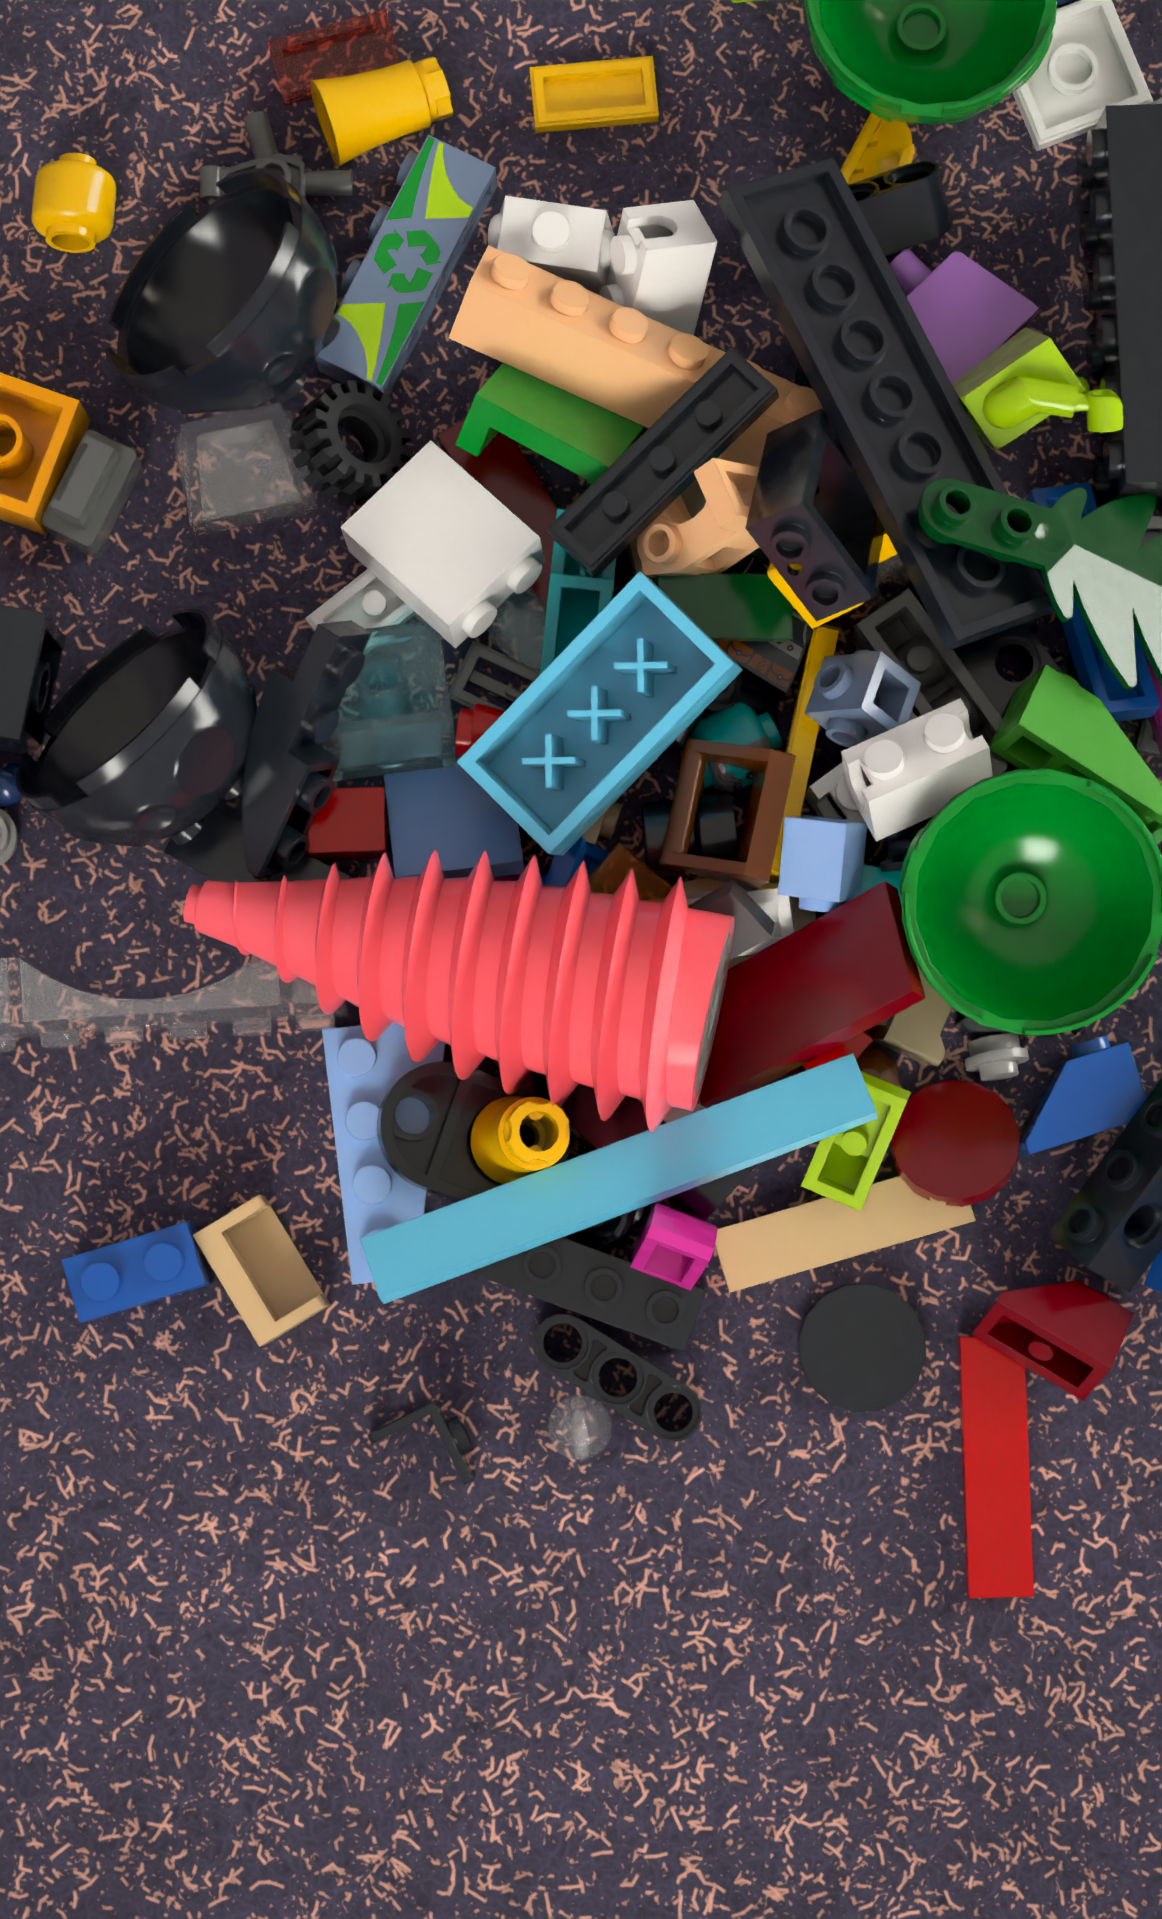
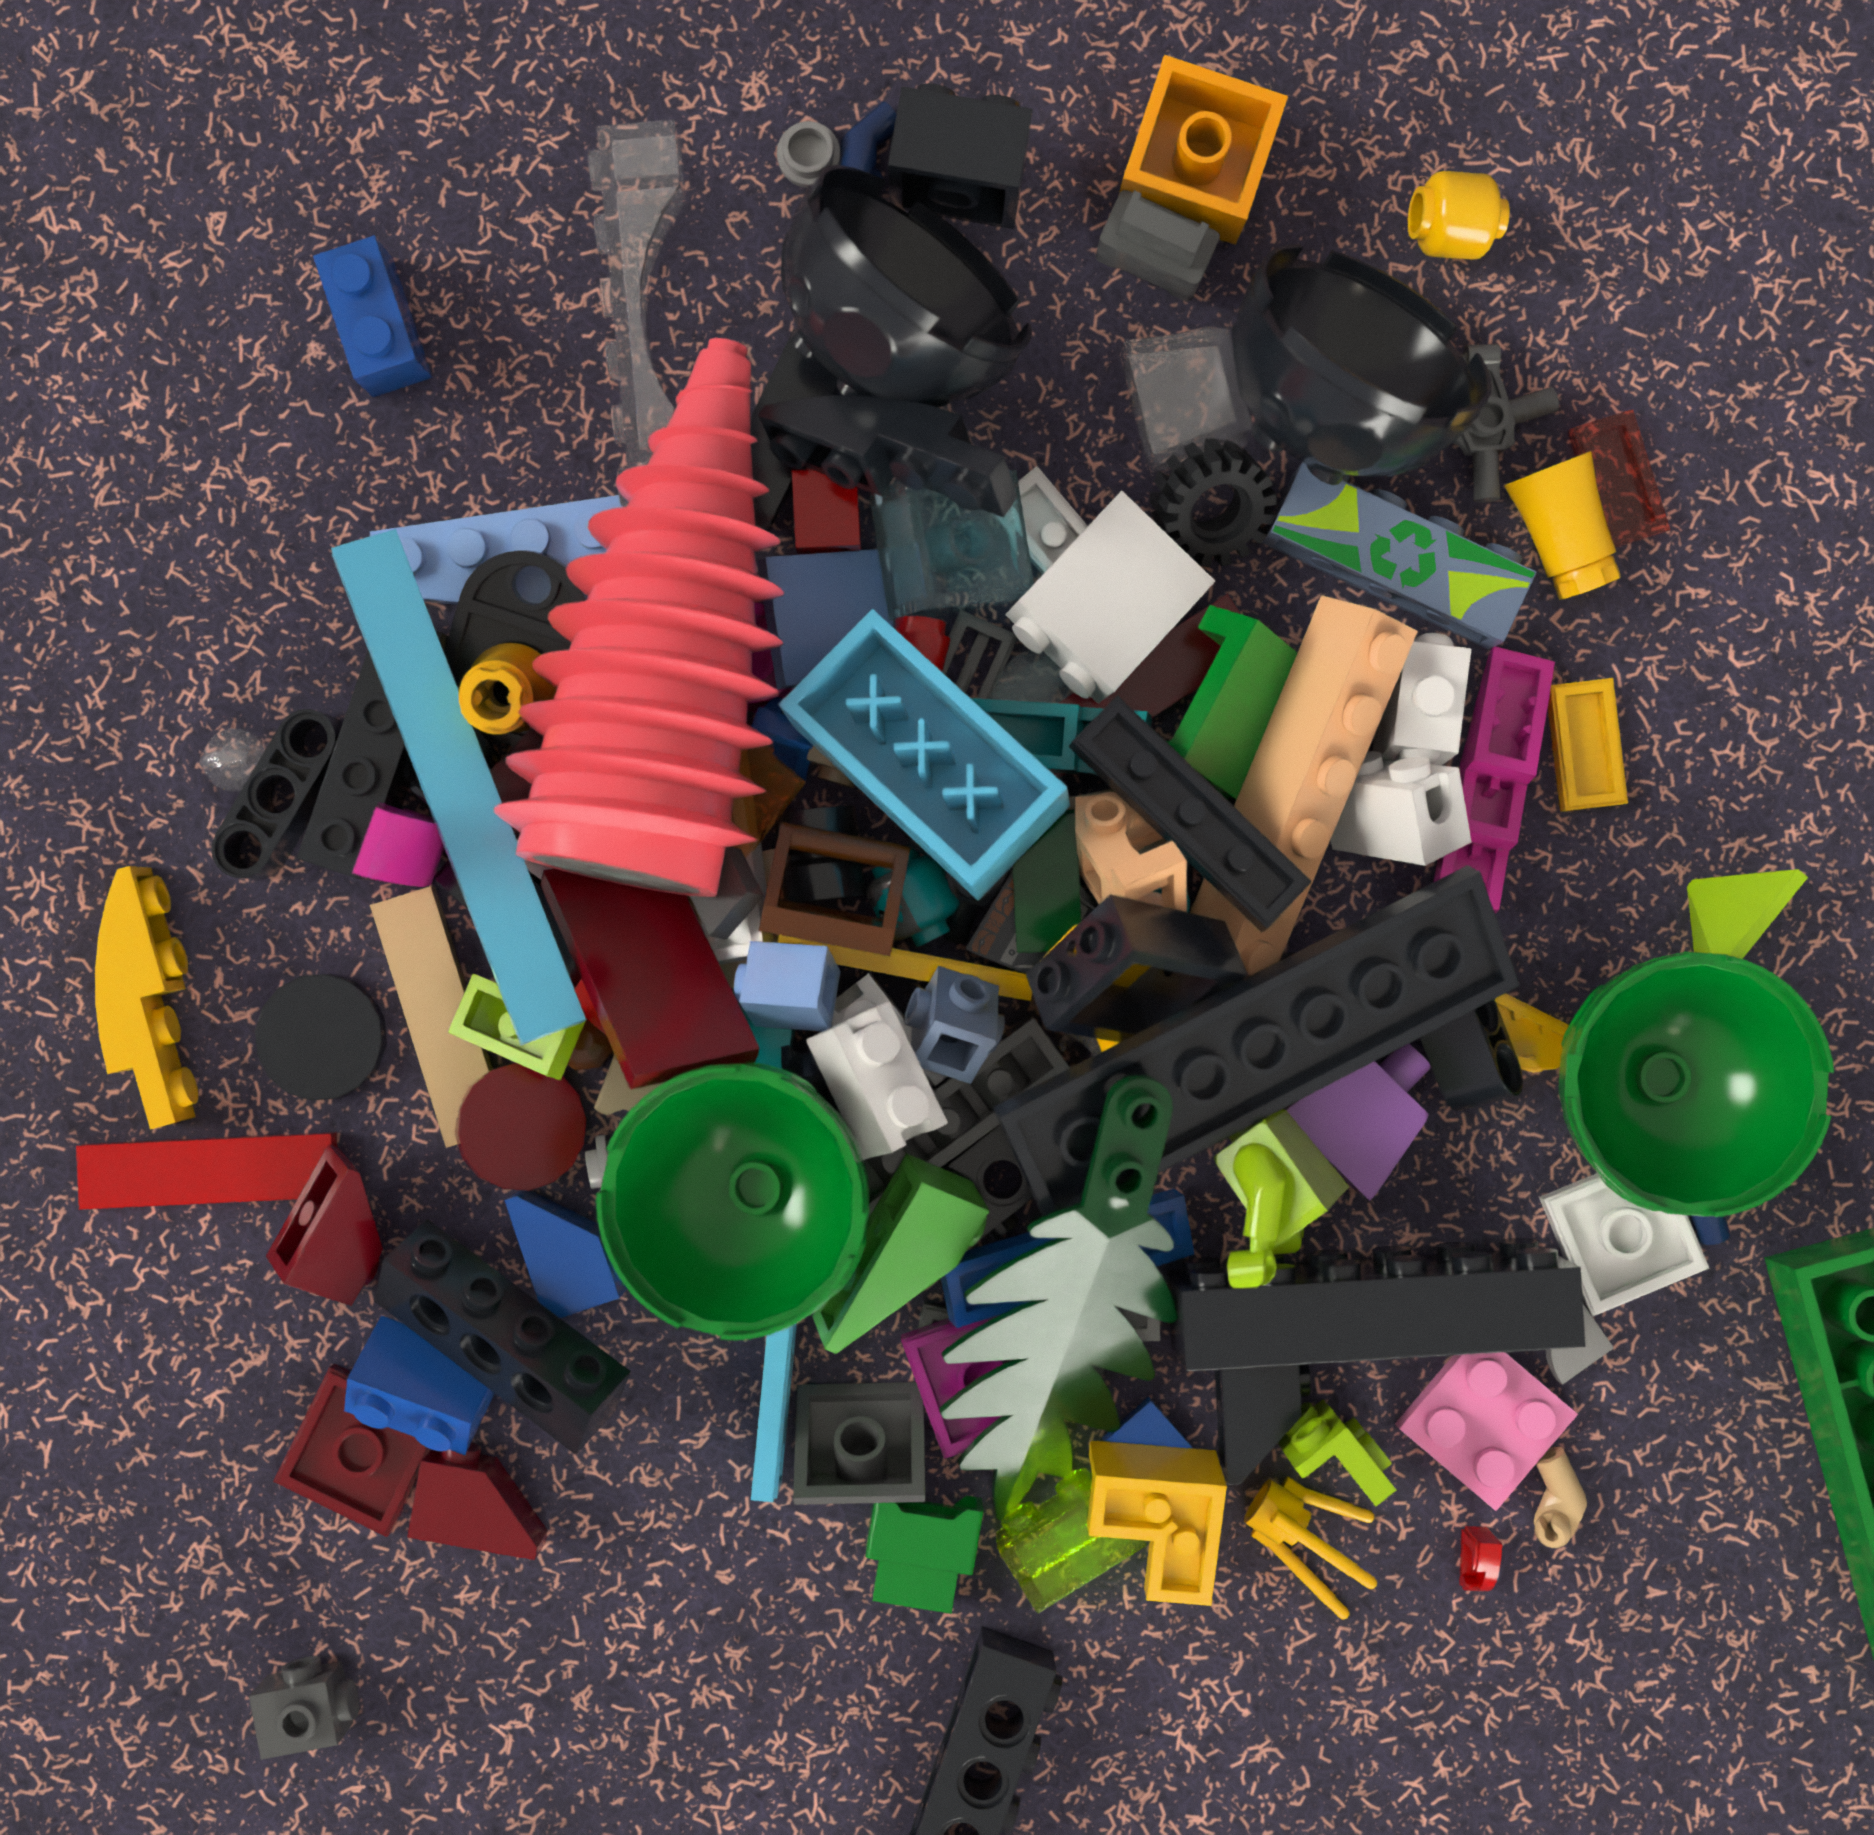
camera: 90 degrees right, 5 degrees up
(261, 1270) = (378, 441): tan panel -> none
(450, 1430) = (224, 630): black bracket -> none
(608, 175) = (1500, 762): none -> dark pink slope
(793, 1530) = (132, 972): none -> yellow slope

